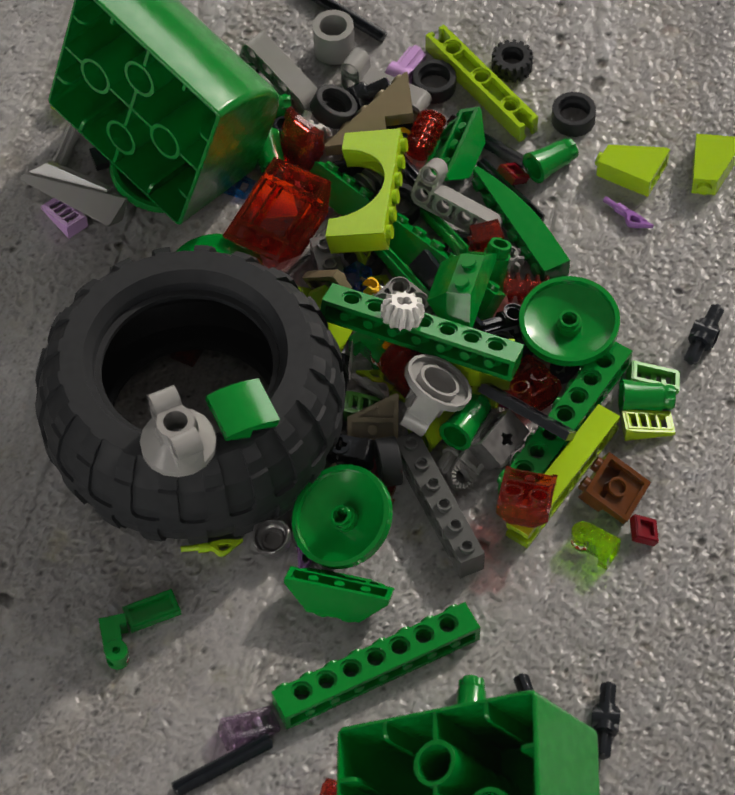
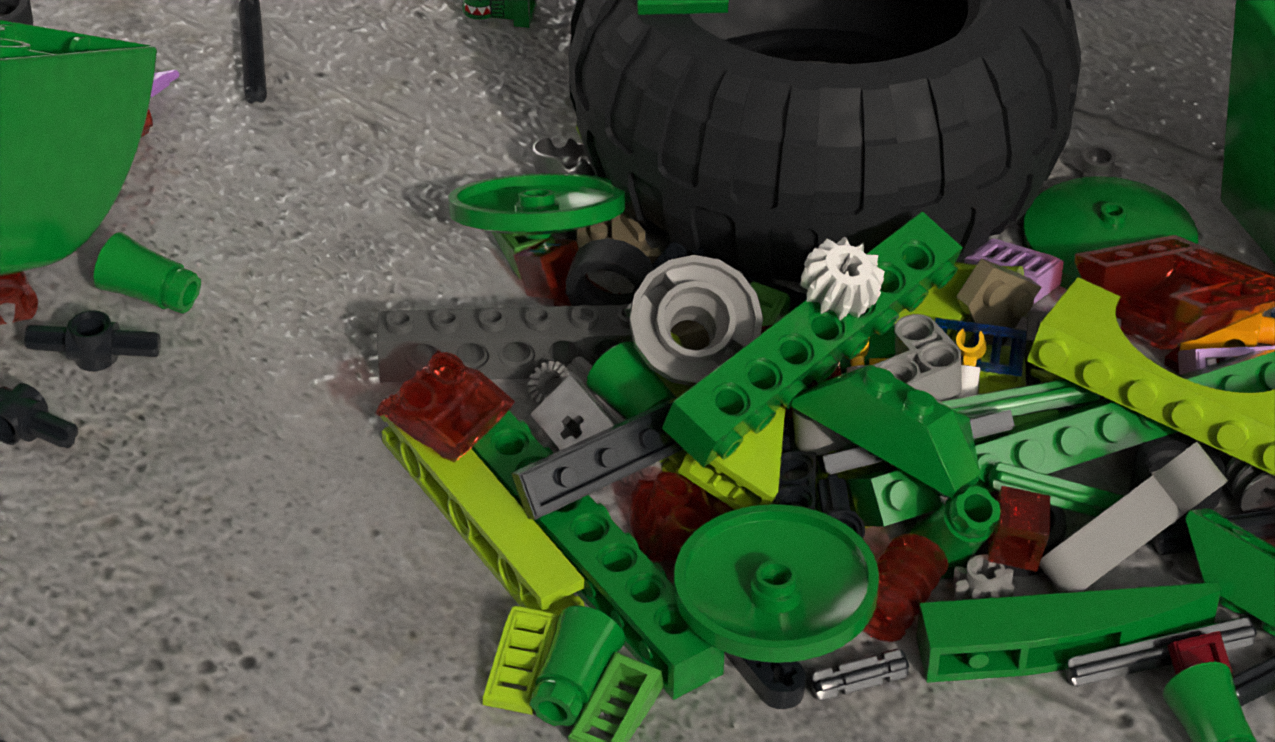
camera: 110 degrees right, 15 degrees down
(151, 610) = (530, 45): green tile -> none
(239, 738) = (289, 59): clear purple slope -> none
(337, 593) = (414, 203): green wedge -> none
(368, 677) = (289, 215): green brick -> none
(596, 542) = (325, 507): clear neon green leg -> none
(613, 487) = (413, 558): reddish brown plate -> none
(644, 530) = (310, 577): dark red tile -> none

